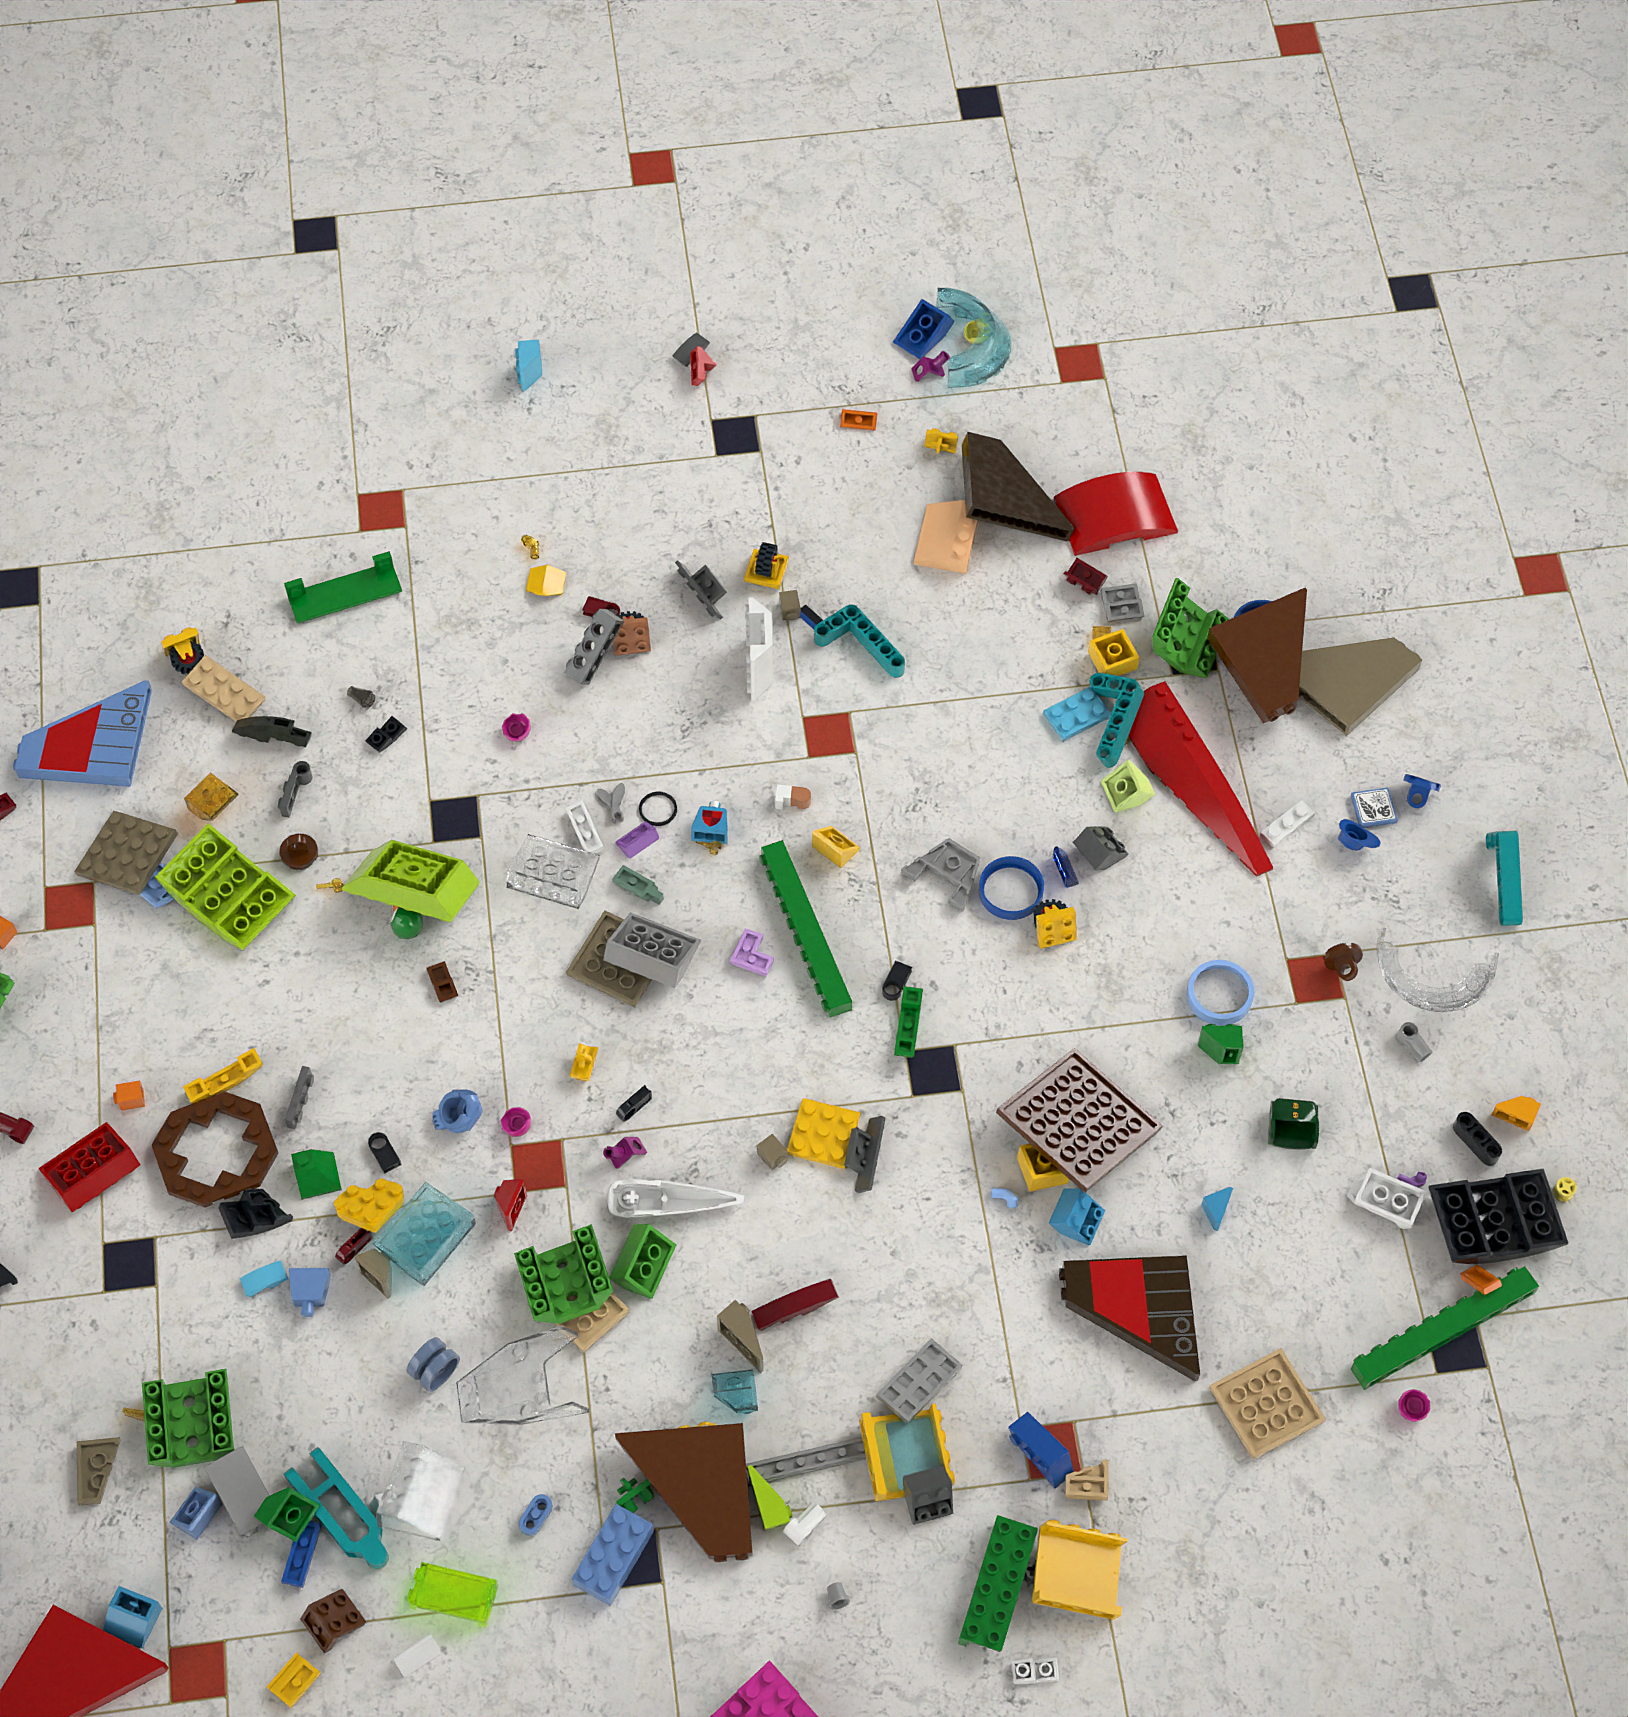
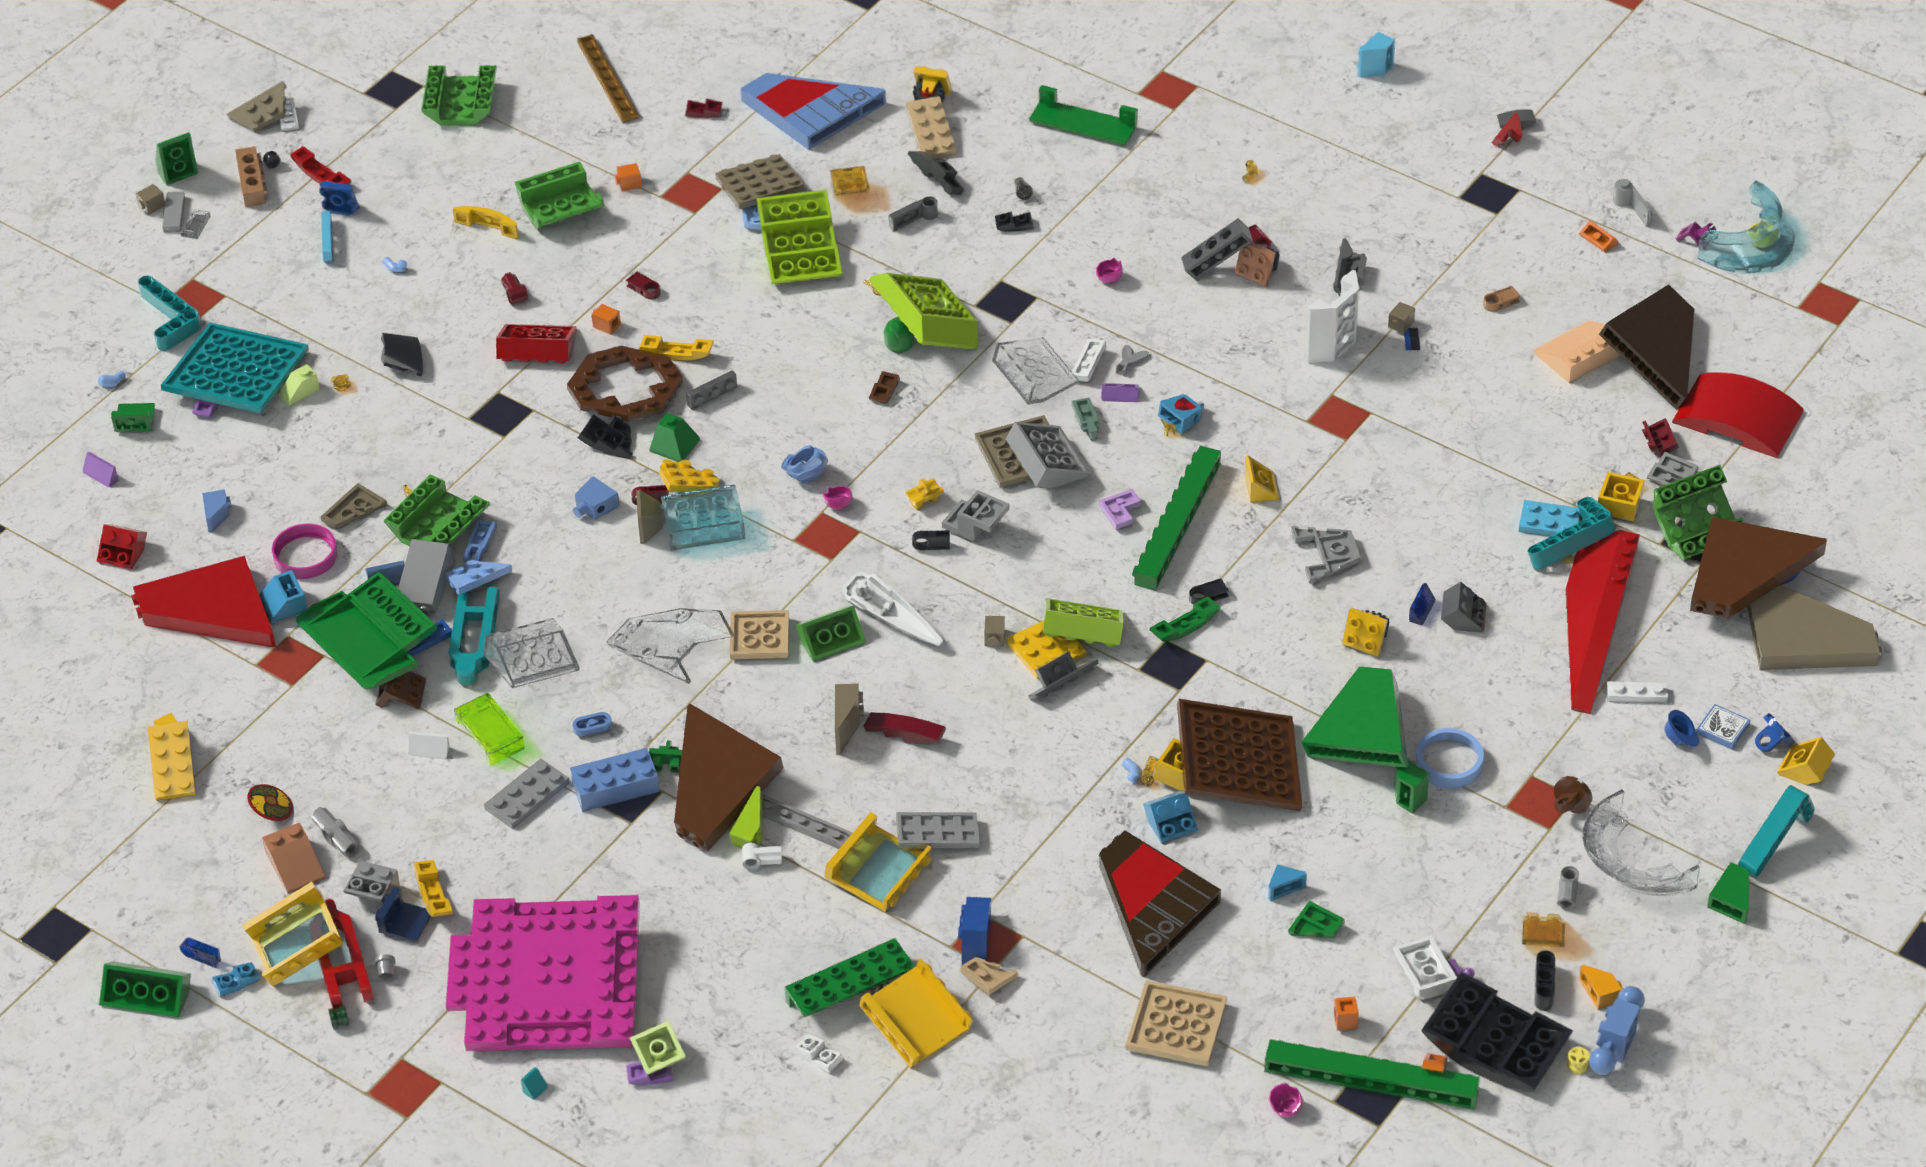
camera: 45 degrees right, 15 degrees down
(77, 1527) = (300, 531): none -> dark pink piece
(121, 1034) = (641, 283): none -> dark red piece
(247, 1409) = (479, 540): none -> medium blue hinge
(251, 1589) = (368, 630): none -> green slope
(264, 1277) = (575, 475): medium azure slope -> none
(283, 1452) = (475, 574): none -> light blue wing
(287, 1512) = (436, 601): green slope -> none
(293, 1680) = (339, 703): yellow plate -> none
(298, 851) = (875, 251): reddish brown tile -> none
(386, 1155) = (731, 461): black piece -> none
(433, 1364) = (621, 590): sand blue wheel -> none
(510, 1200) = (780, 539): red slope -> none
(546, 581) = (1237, 199): yellow slope -> none
(548, 1630) = (526, 793): none -> light grey plate
(551, 1287) = (758, 605): bright green slope -> none
(624, 1151) = (889, 561): magenta bracket -> none
(652, 1053) = (975, 515): none -> light grey bracket
(658, 823) = (1157, 372): black piece -> none
(736, 1390) = (805, 749): clear light blue slope -> none
(766, 566) = (1411, 281): yellow plate -> none
(792, 796) = (1262, 433): leg -> none
(836, 1087) = (1083, 622): none -> lime slope
(837, 1596) = (733, 912): light grey piece -> none
(844, 364) = (1626, 194): none -> light grey door
(845, 528) = (1504, 298): none -> medium nougat piece
(864, 636) = (1429, 352): teal beam -> none
(923, 329) = (1720, 207): blue slope -> none
(928, 1494) = (863, 896): dark grey slope -> none
(941, 441) = (1645, 283): yellow hips -> none
(1011, 862) = (1368, 571): blue piece -> none
(1017, 1185) = (1146, 776): none -> clear yellow arm
(1127, 787) = (1531, 587): yellowish green slope -> none
(1142, 1015) = (1362, 722): none -> green slope
(1273, 1223) = (1316, 922): none -> green wing
(1293, 1124) = (1404, 871): dark green piece -> none
(1379, 1290) = (1346, 1013): none -> orange brick
(1434, 1094) = (1542, 930): none -> clear yellow slope
(1461, 795) = (1807, 761): none -> yellow slope
(1524, 952) = (1731, 893): none -> green slope
(1573, 1142) = (1617, 1030): none -> medium blue brick

